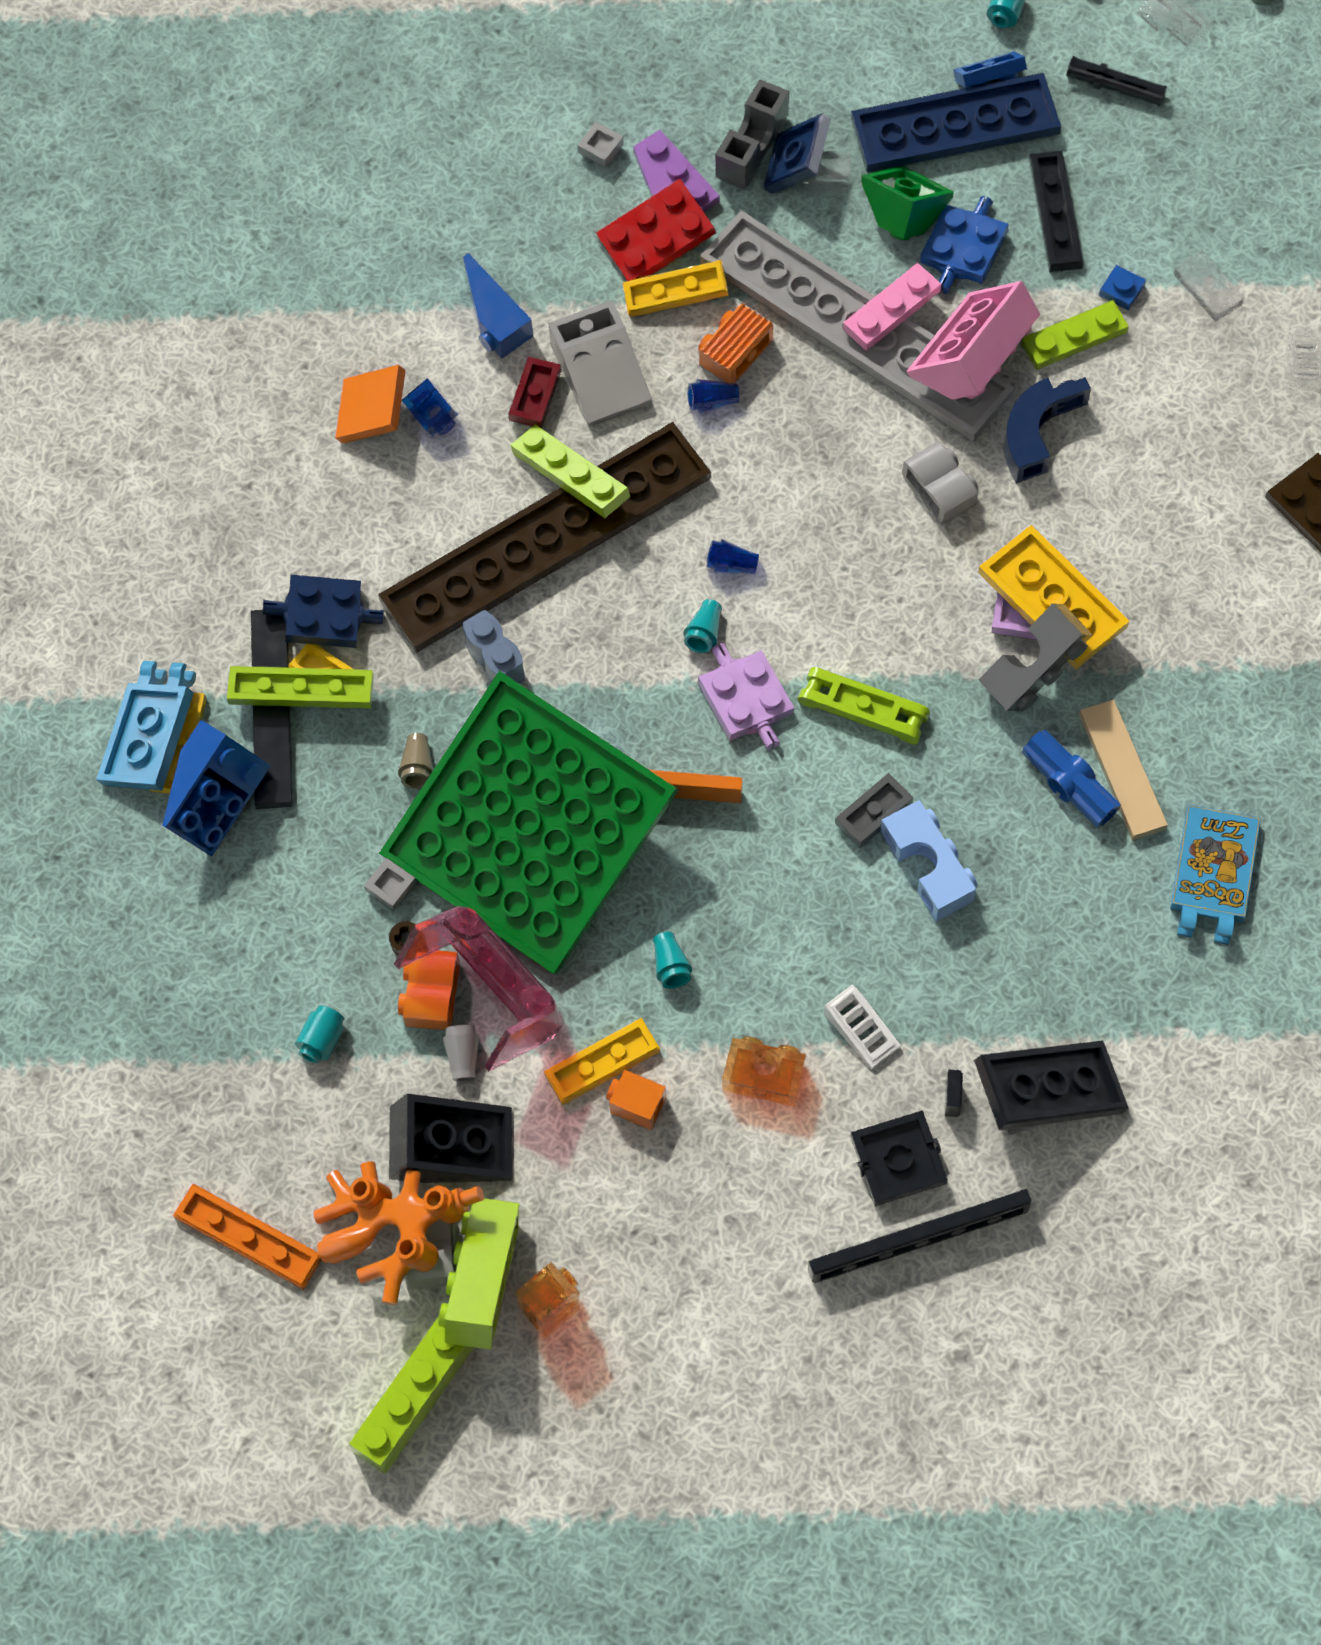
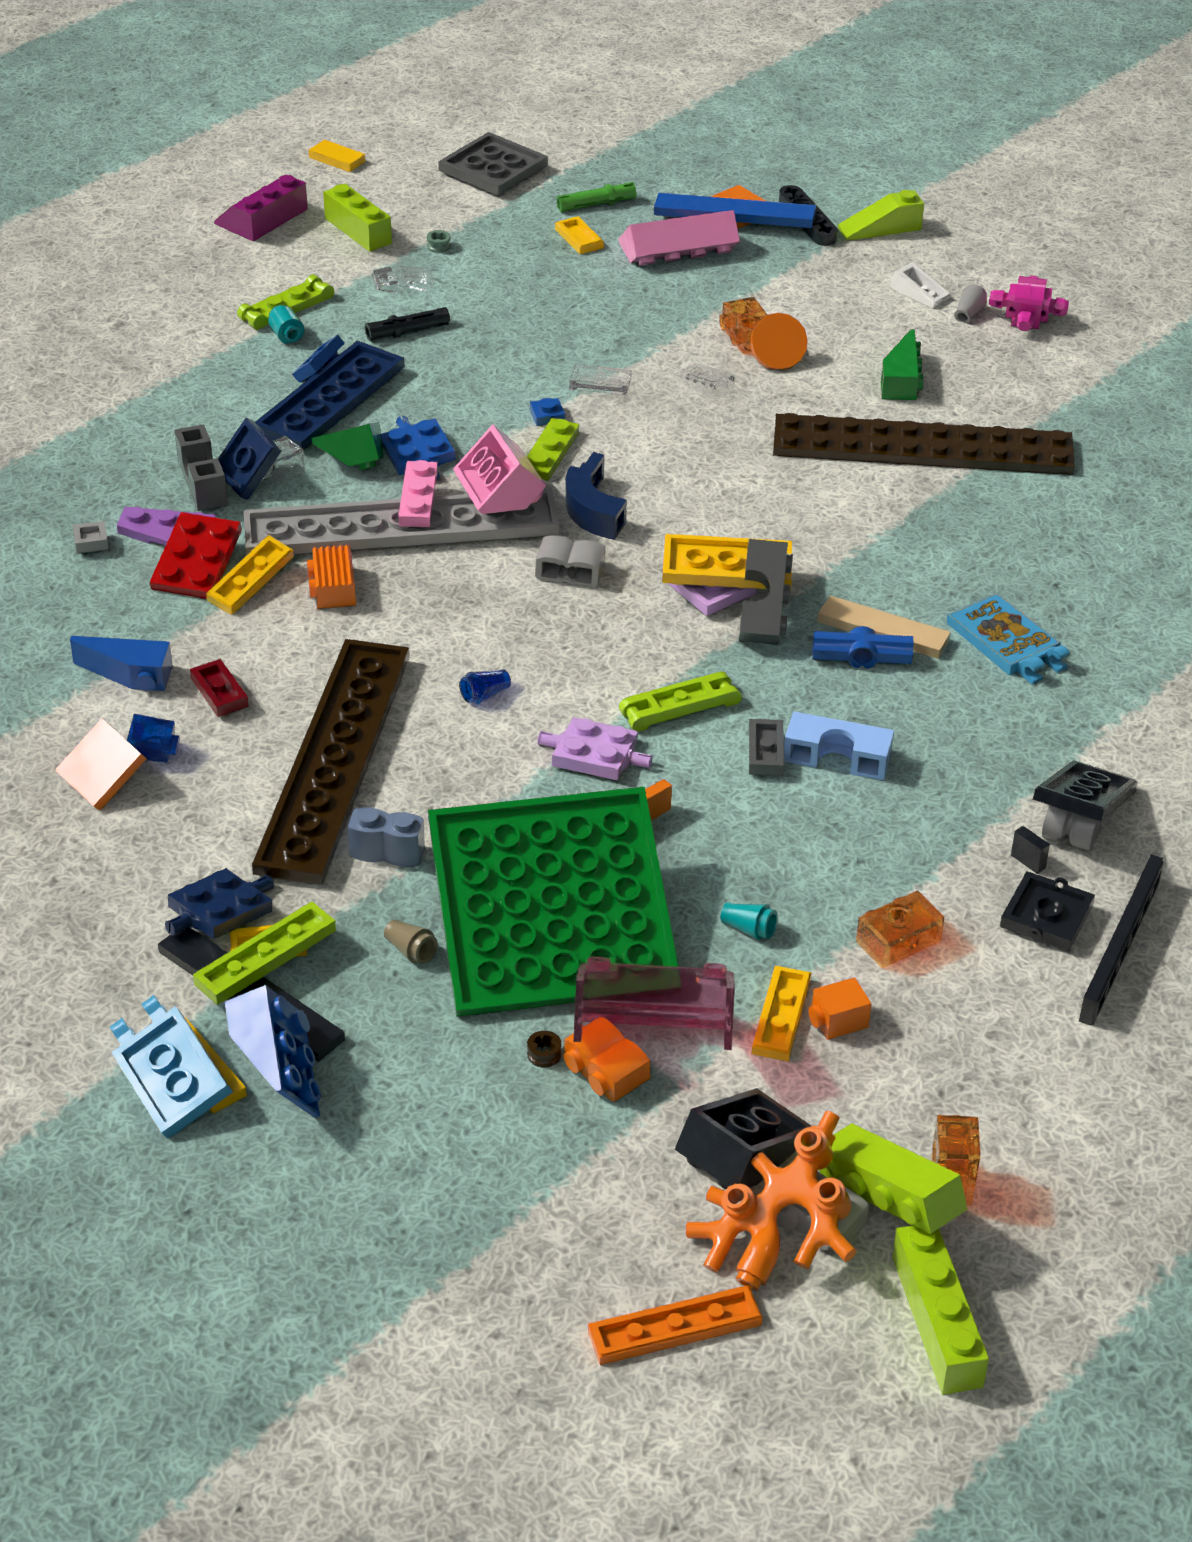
camera: 50 degrees left, 25 degrees down
(320, 1034) = (560, 1149): teal brick -> none
(390, 884) = (489, 1023): light grey plate -> none
(461, 1050) = (677, 1078): light grey cone -> none
(570, 471) = (307, 705): lime plate -> none
(599, 363) = (247, 639): light grey slope -> none
(703, 629) = (518, 732): teal cone -> none
(709, 395) = (349, 614): clear blue cone -> none
(841, 1023) = (903, 866): white slope -> none
(1055, 211) = (453, 401): black tile -> none

